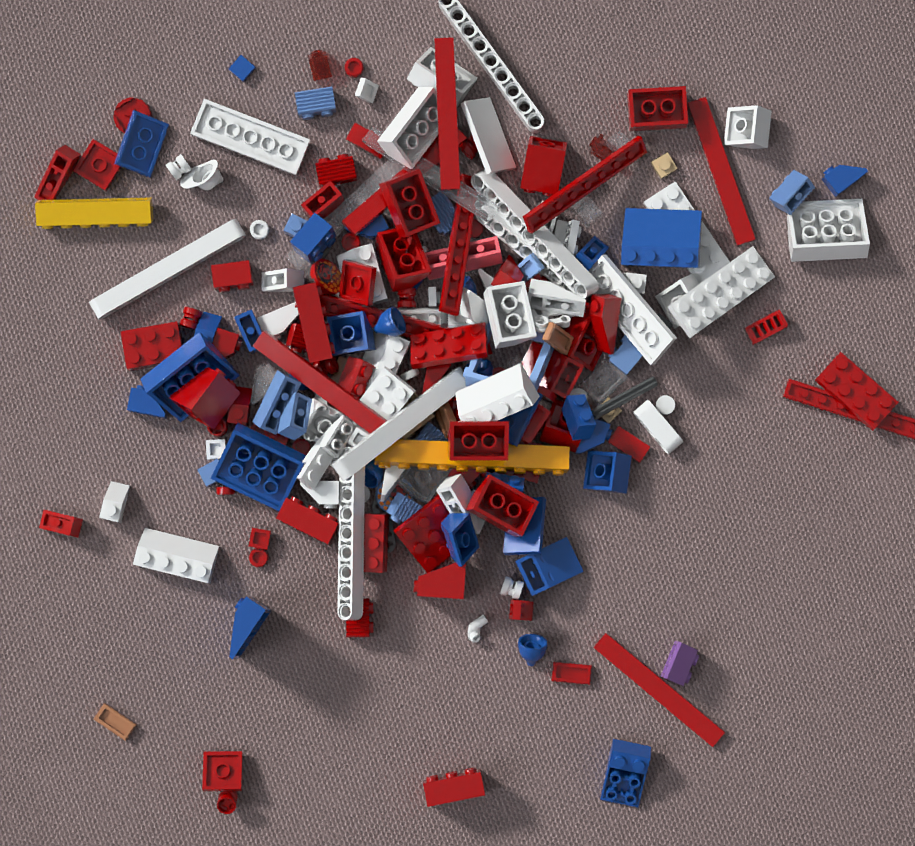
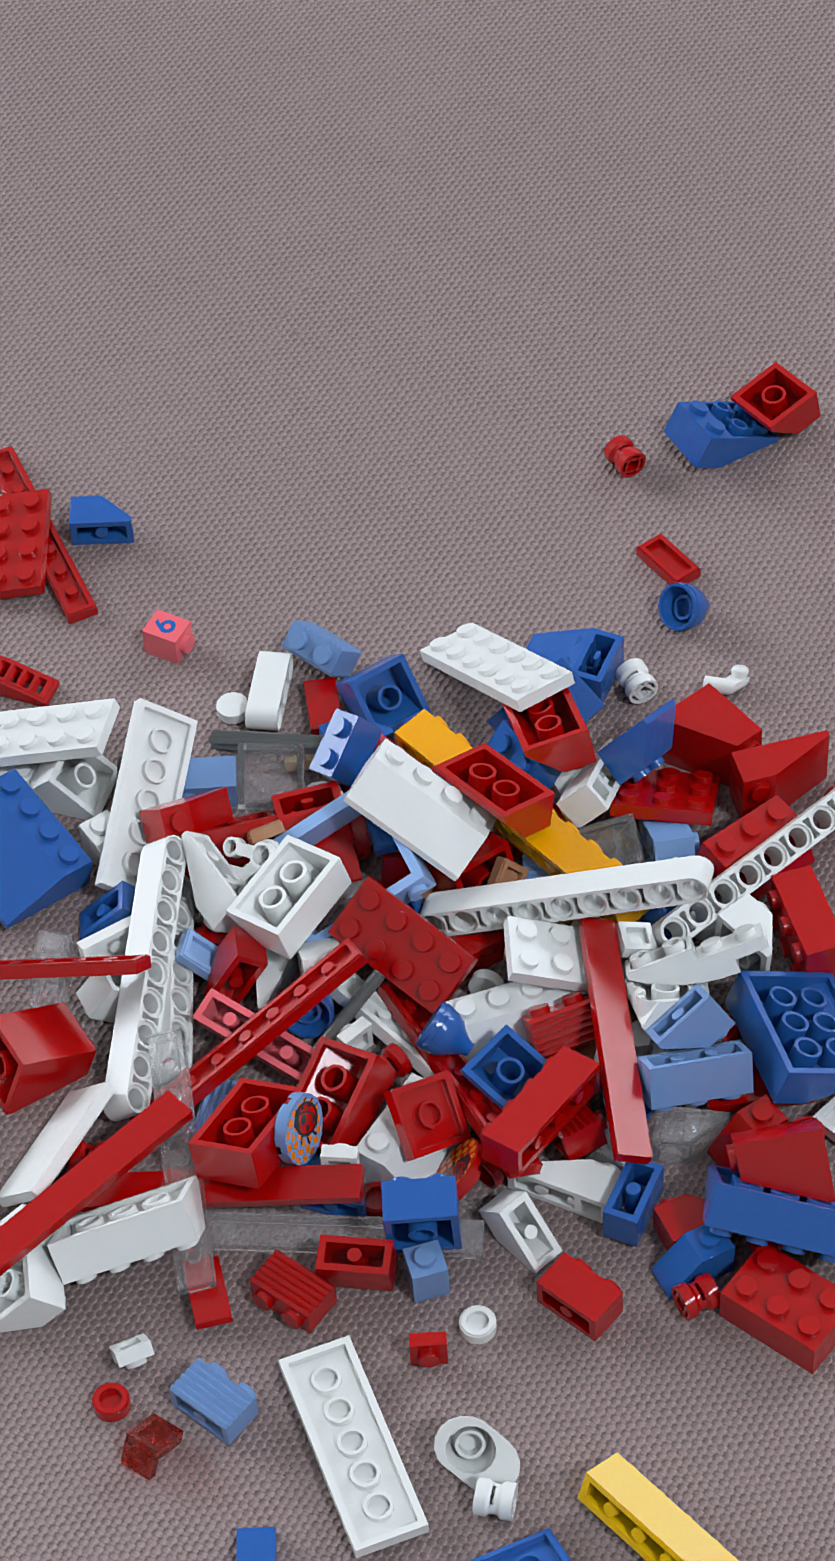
camera: 130 degrees left, 35 degrees down
(167, 269) = (662, 1386): white beam -> none
(262, 198) = (428, 1349): none -> red plate
(368, 231) = (339, 1154): none -> white plate
(390, 221) = (298, 1128): none -> tile
(398, 584) = (778, 768): none -> red slope
(521, 610) = (657, 647): red plate -> none
(565, 523) = (497, 666): none -> white plate
(614, 810) = (779, 400): none -> red slope
(647, 710) = (627, 460): none -> red wheel
(658, 468) = (321, 649): none -> medium blue brick
(659, 690) = (590, 477): red tile -> none
(679, 663) = (538, 472): medium lavender slope -> none
(731, 410) = (168, 636): none -> coral brick
(838, 439) = (98, 522): none -> blue slope

